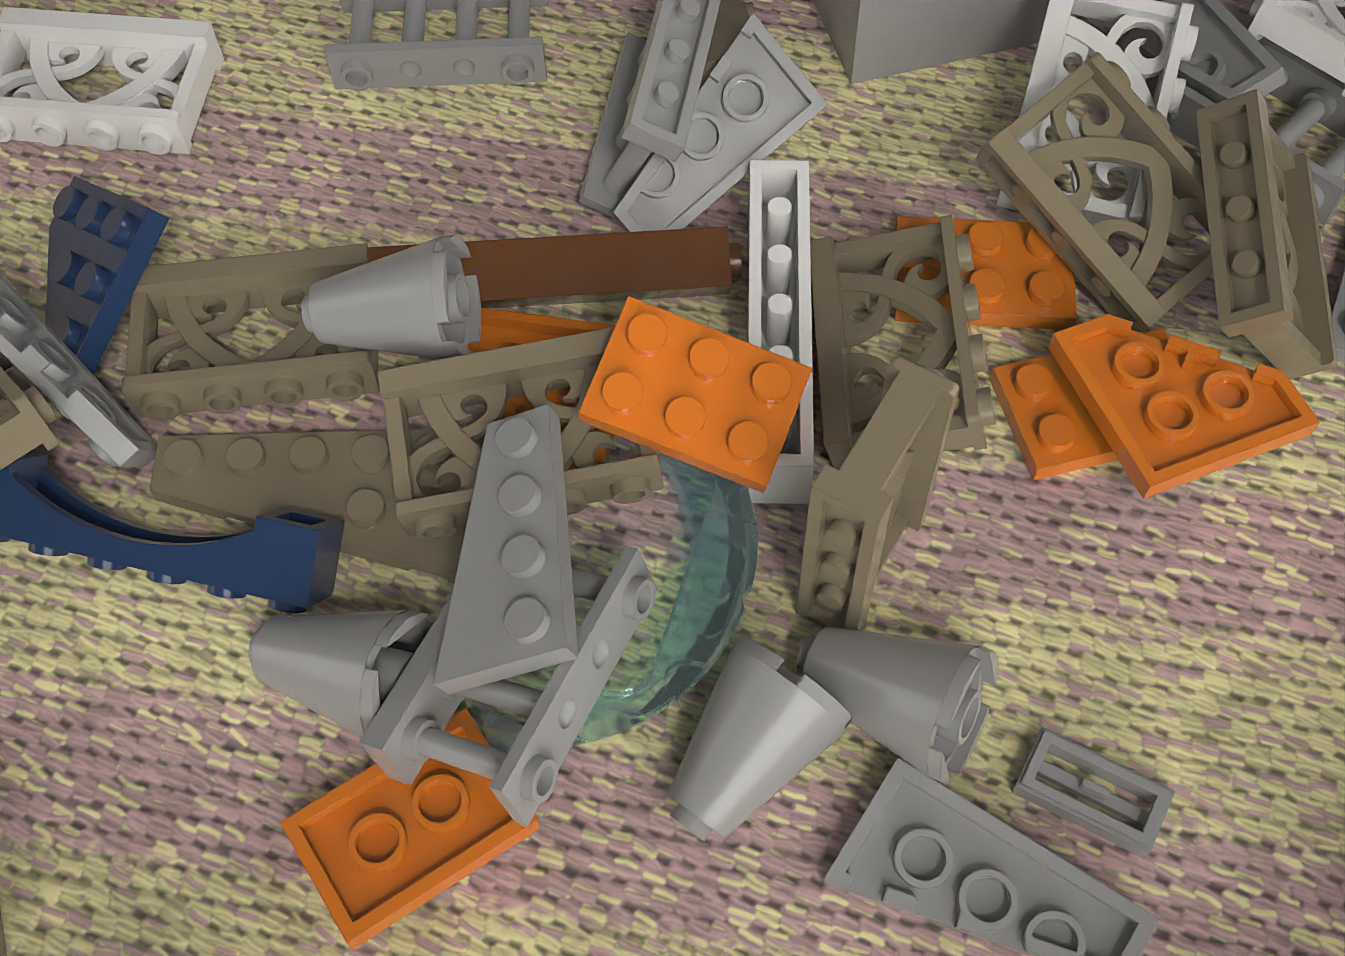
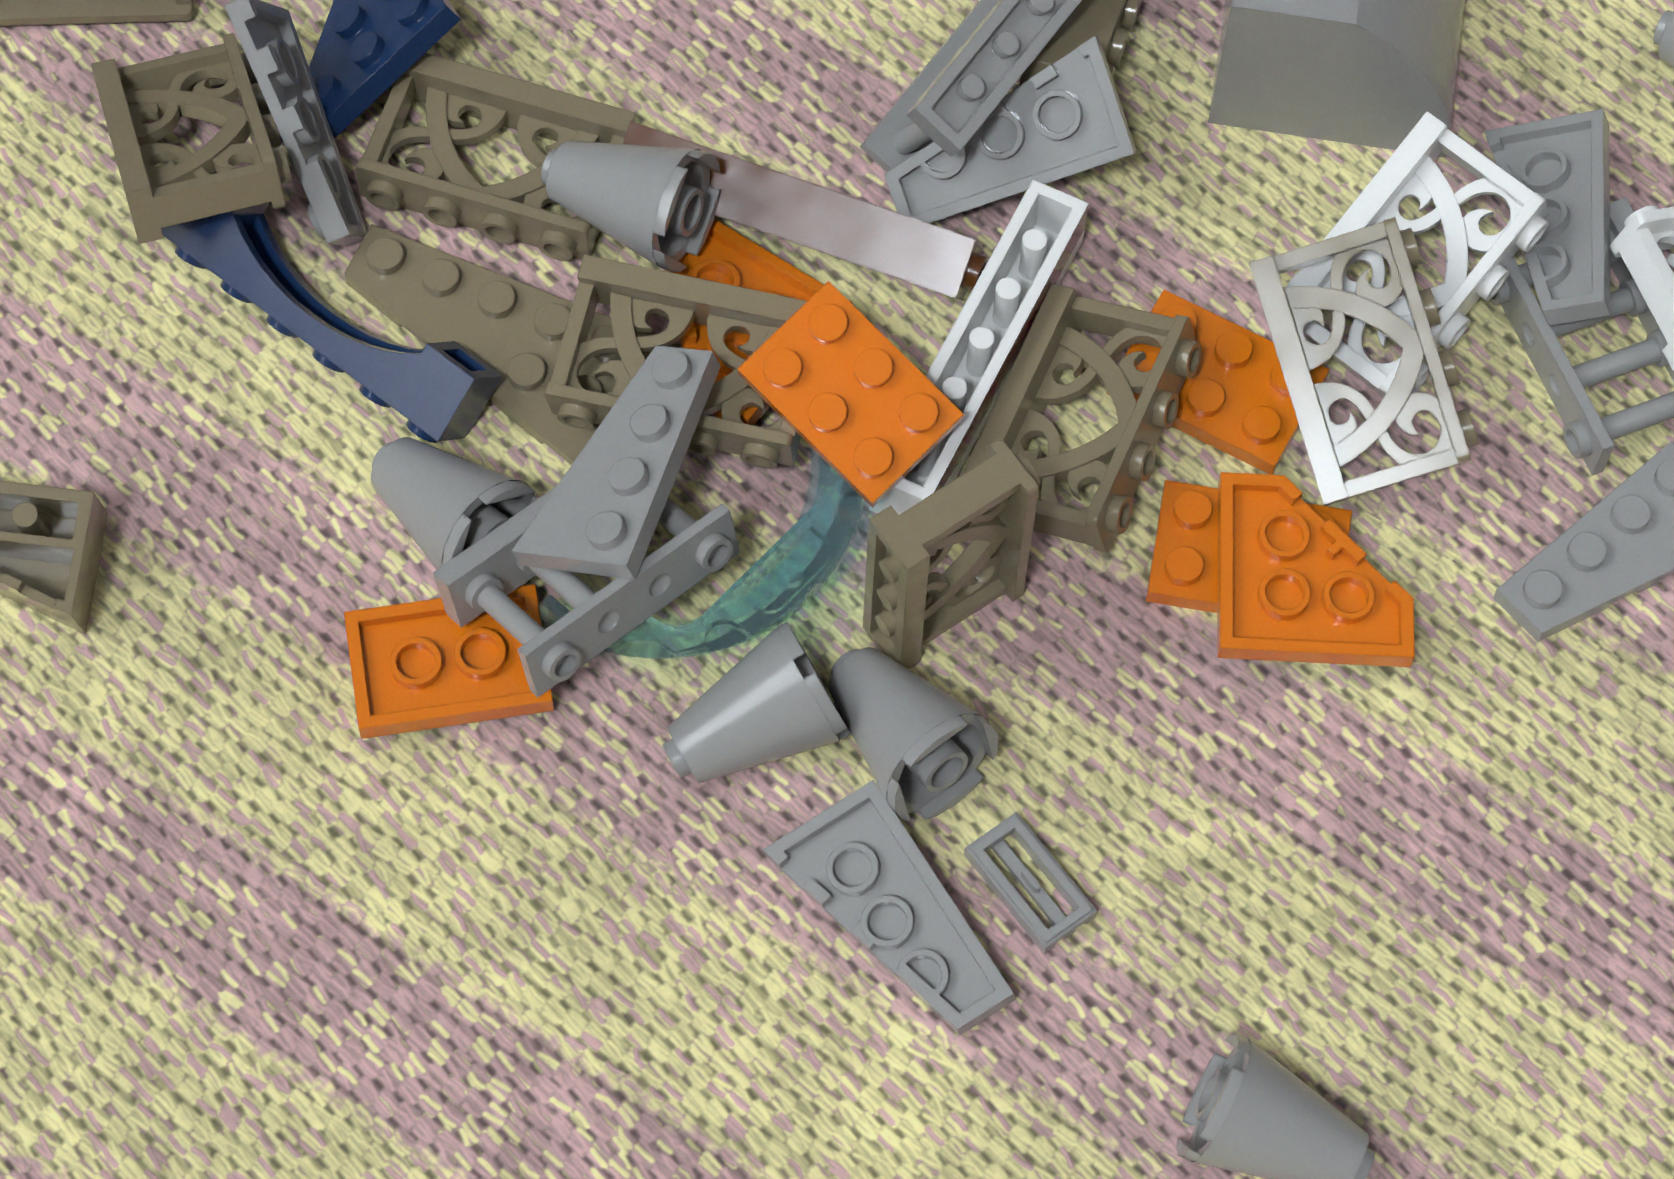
camera: 20 degrees right, 5 degrees up
(1265, 238) = (1428, 480): dark tan fence -> none

